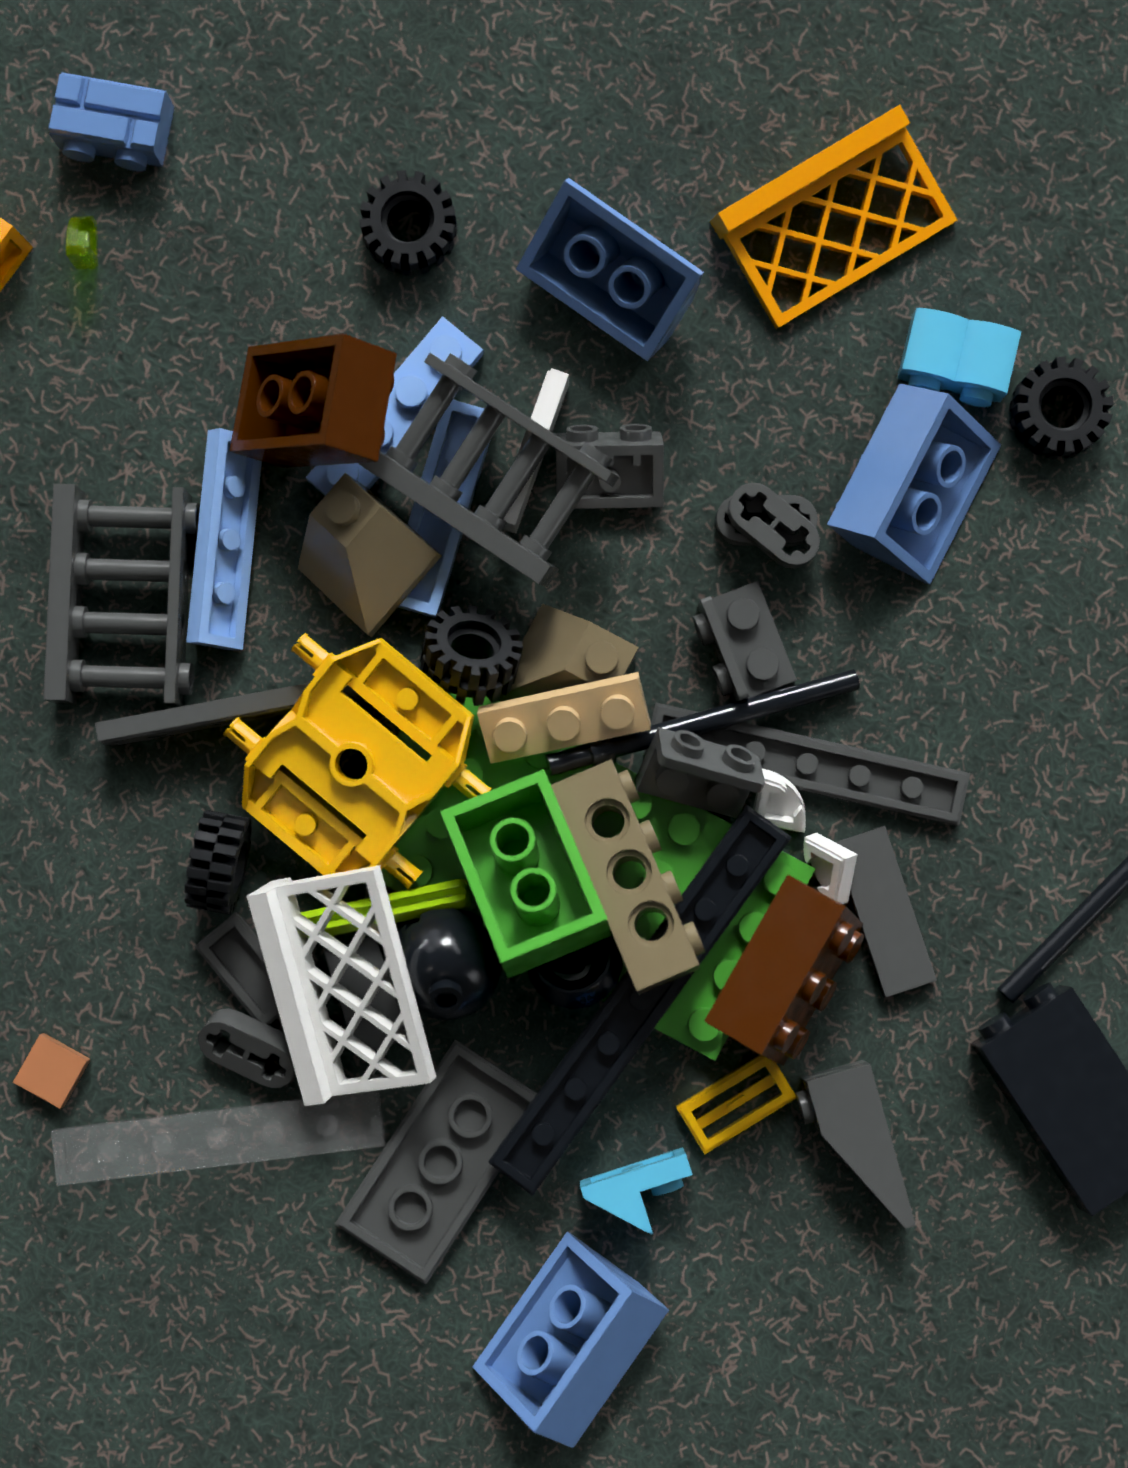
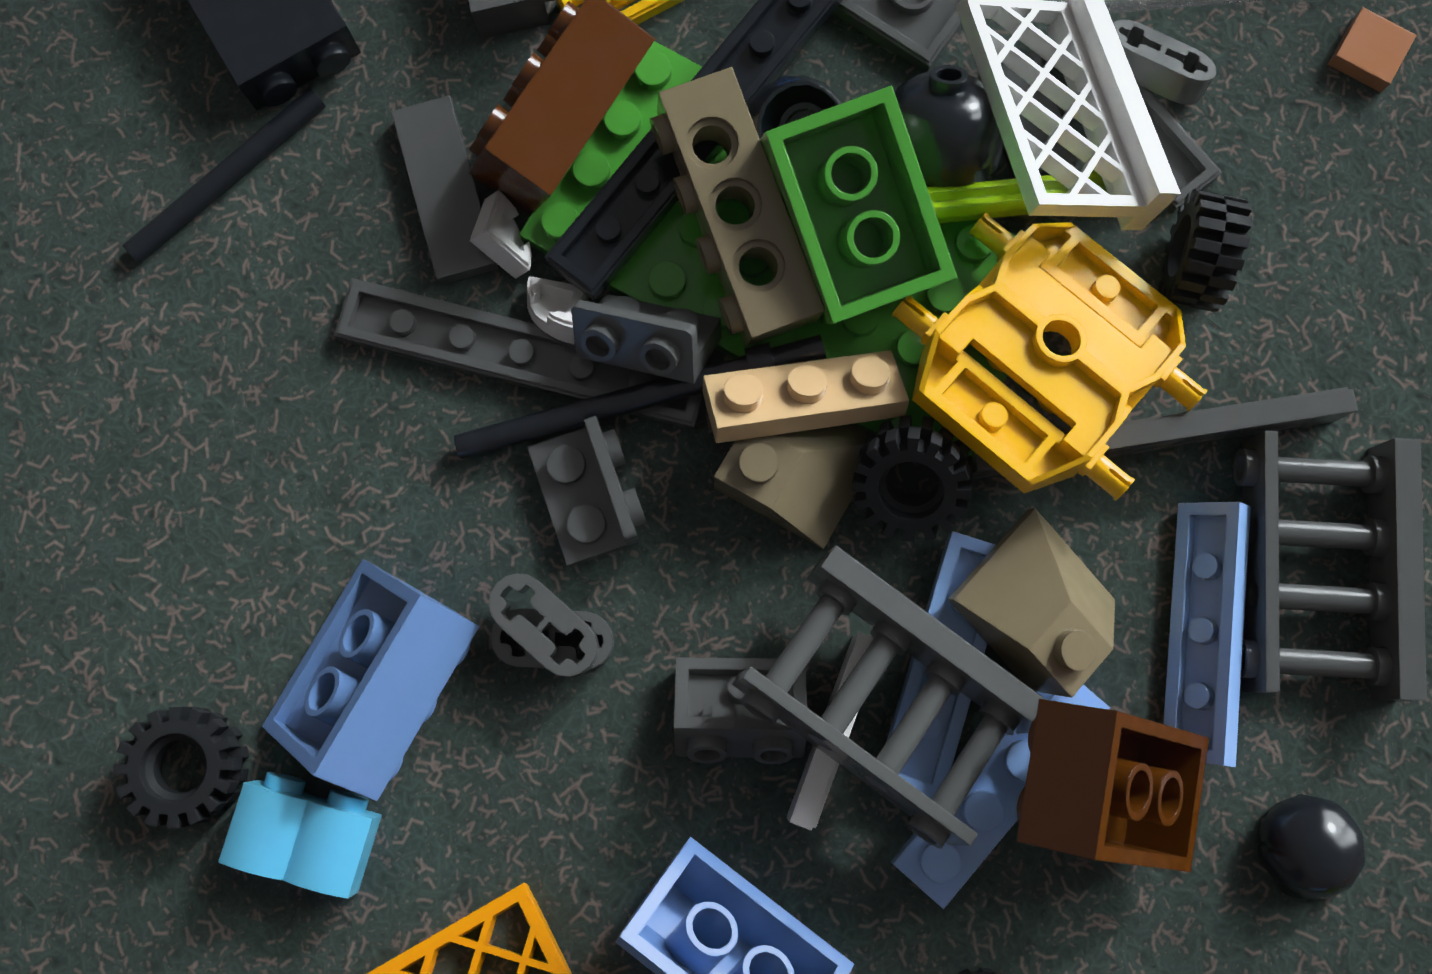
camera: 175 degrees left, 5 degrees down
(145, 372) = (1311, 847): none -> black hair

